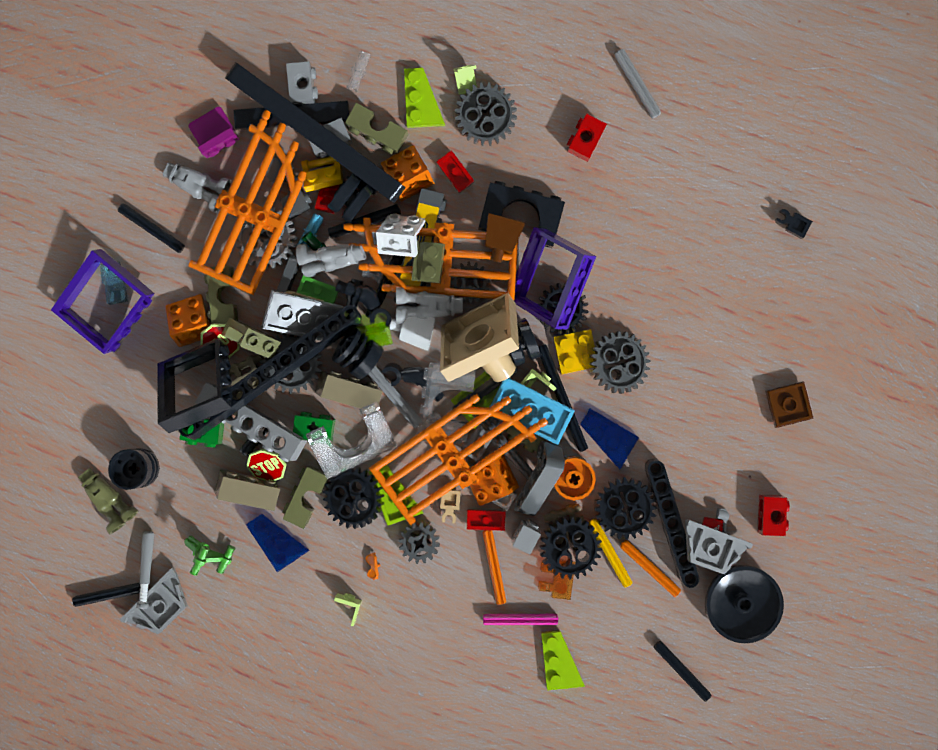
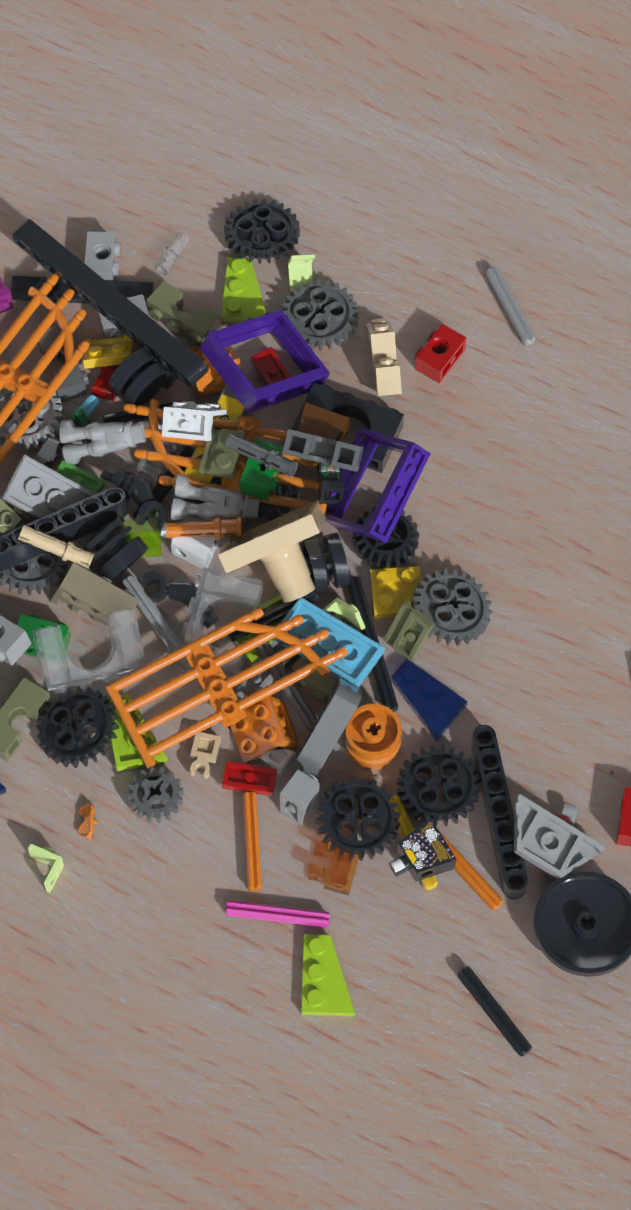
camera: 10 degrees right, 25 degrees down
(320, 368) = (56, 546): none -> tan pin
(416, 52) = (262, 231): none -> black gear
(433, 326) = (217, 528): none -> orange pin
(455, 284) = (257, 481): none -> green brick
(463, 270) = (269, 458): none -> dark grey pin
(470, 147) = (290, 339): none -> dark purple window
(515, 276) = (329, 481): none -> black leg
(522, 260) = (323, 450): none -> dark grey arch
(542, 148) = (384, 359): none -> tan arch
(591, 391) = (409, 631): none -> olive plate
(621, 568) = (423, 853): none -> torso

